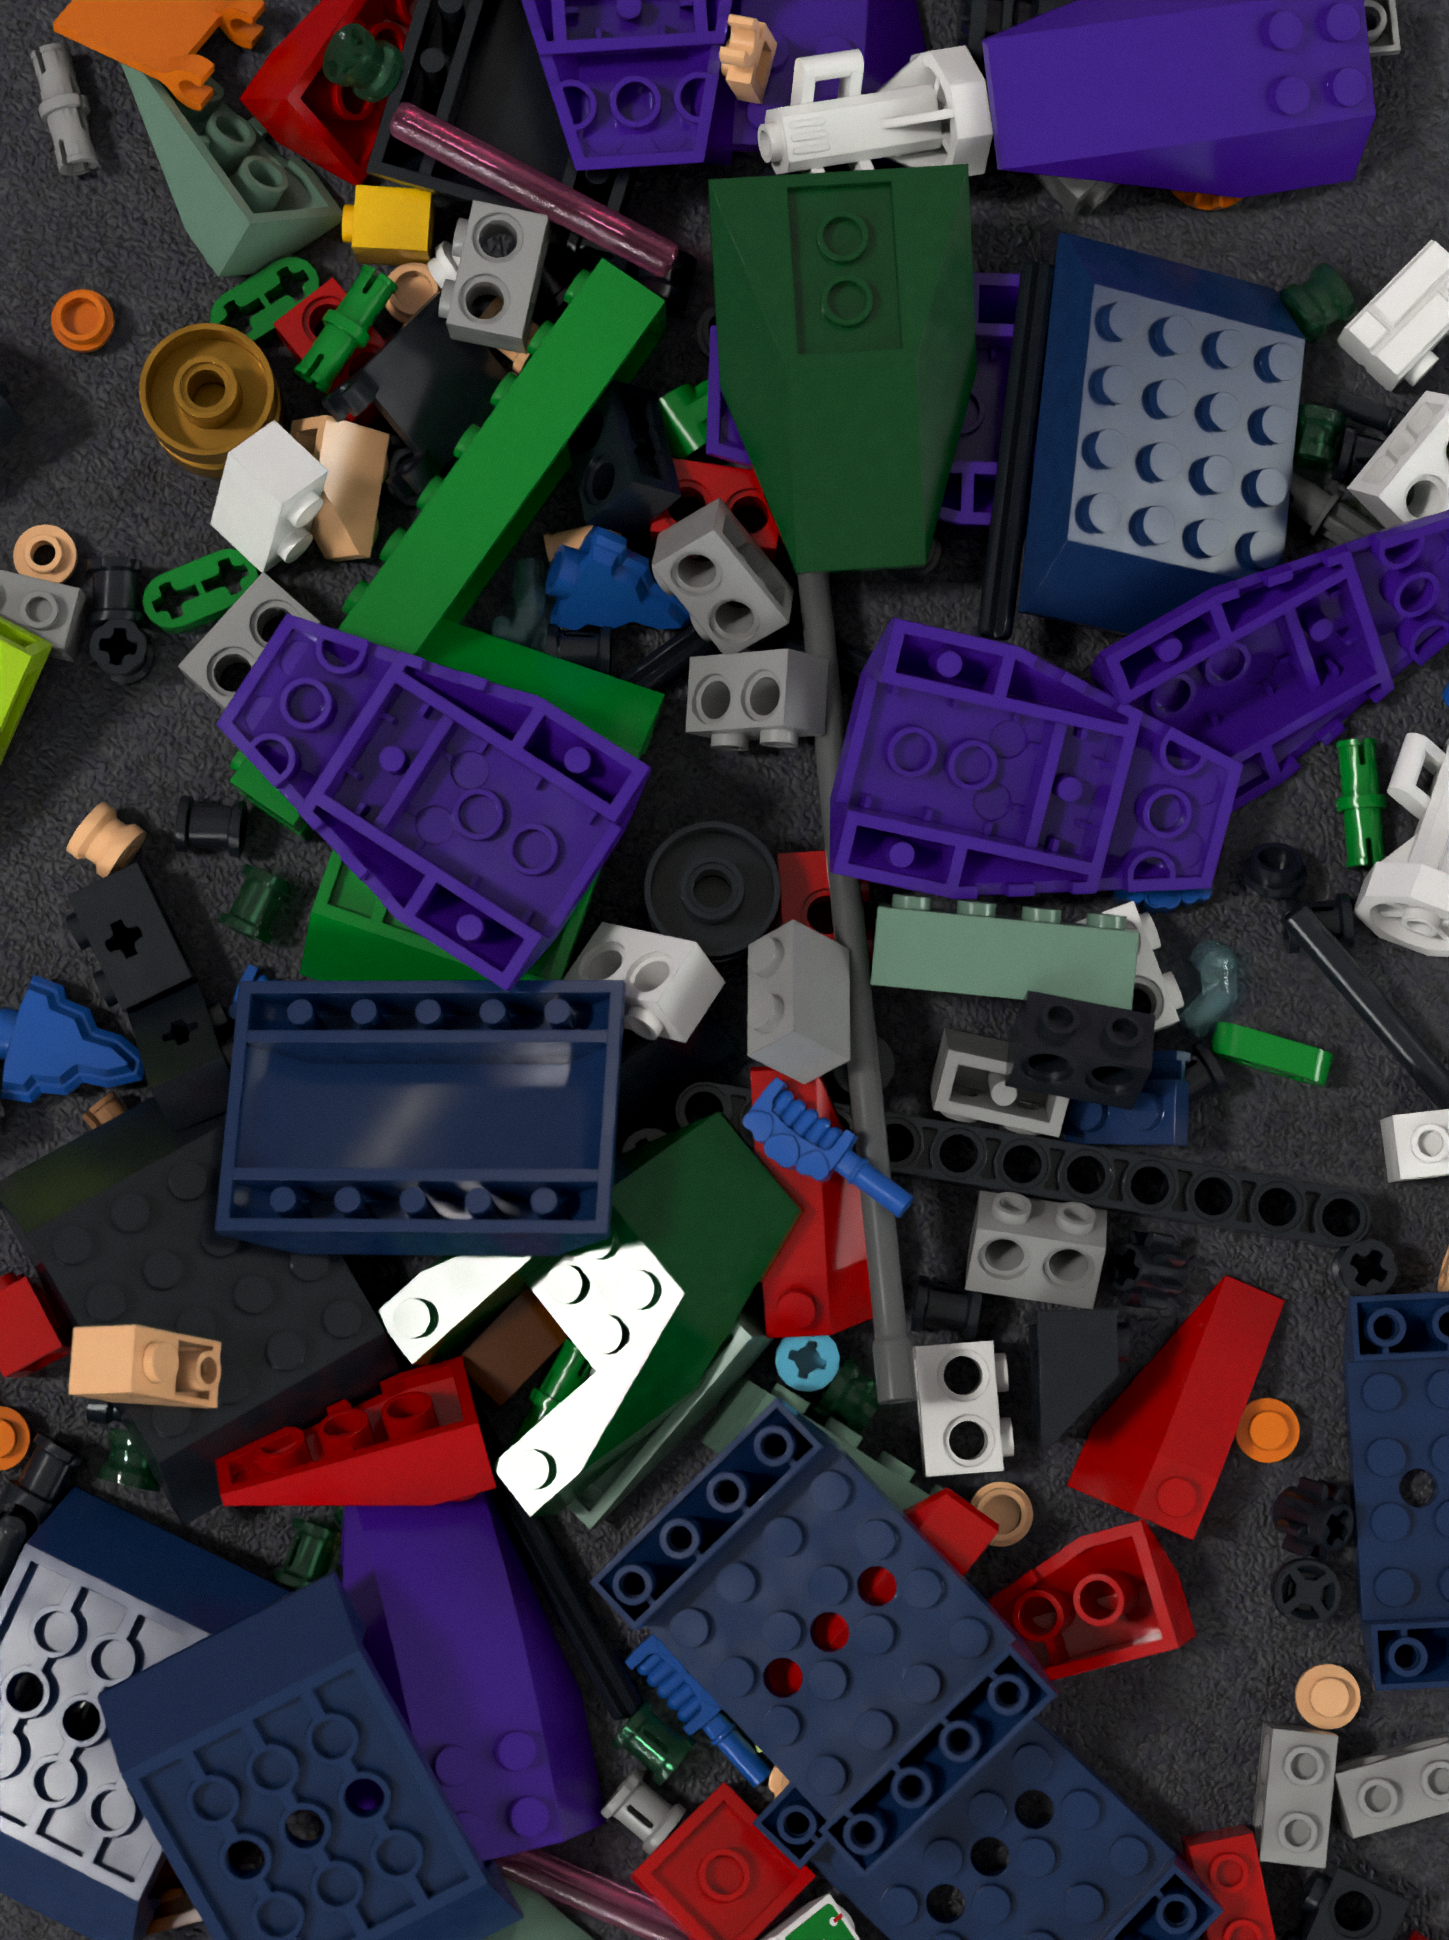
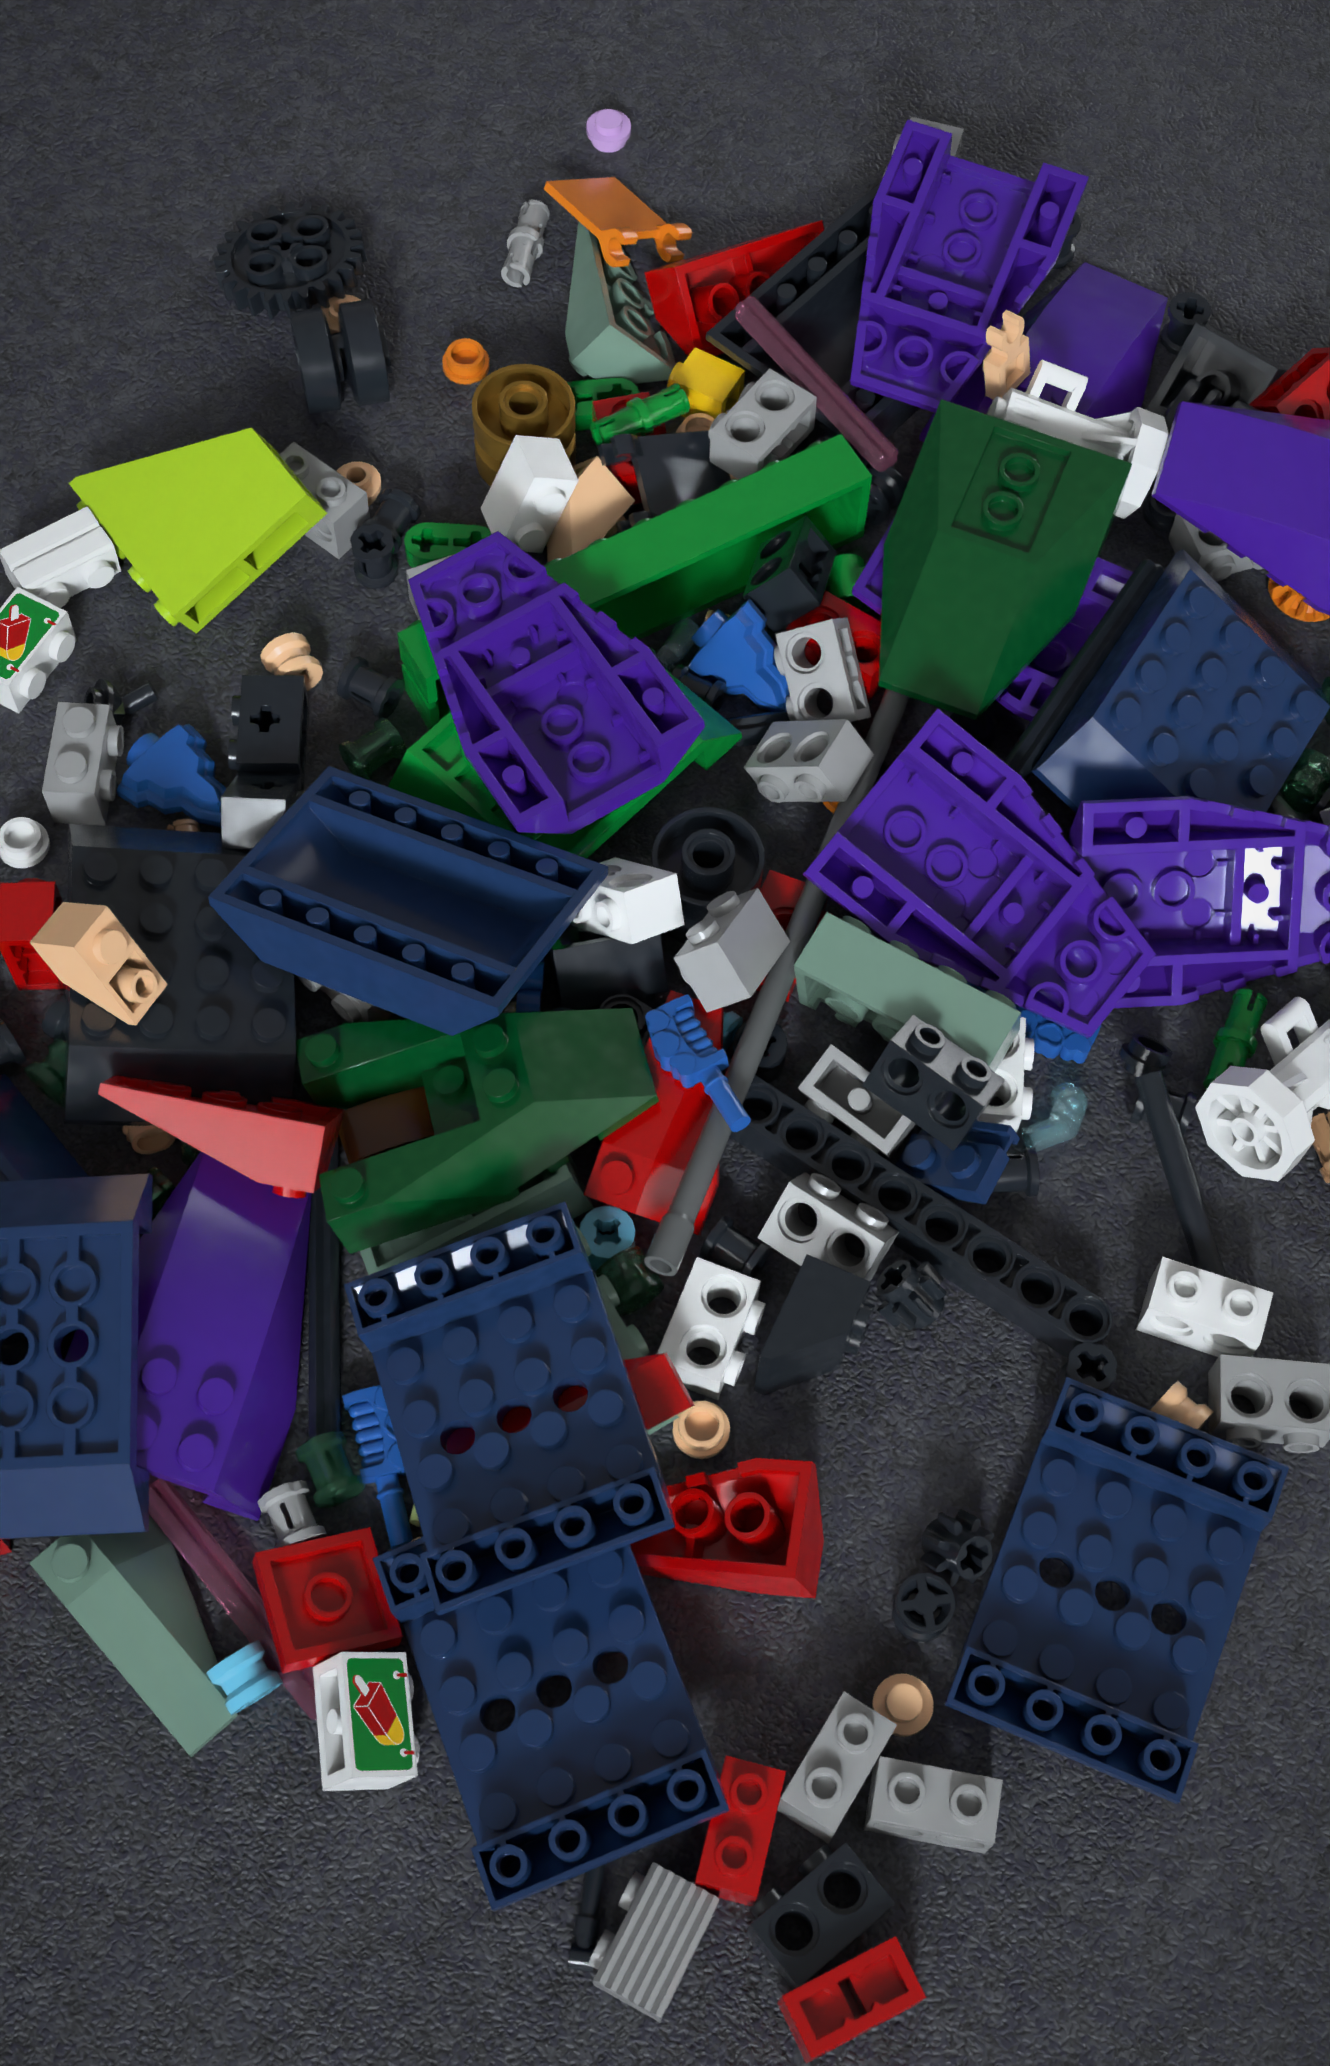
camera: 25 degrees right, 20 degrees down
(362, 62) = (738, 273): clear green wheel -> none
(1176, 1420) = (886, 1421): red wedge -> none
(1267, 1430) = (950, 1466): orange plate -> none
(1271, 1054) = (1084, 1184): green beam -> none

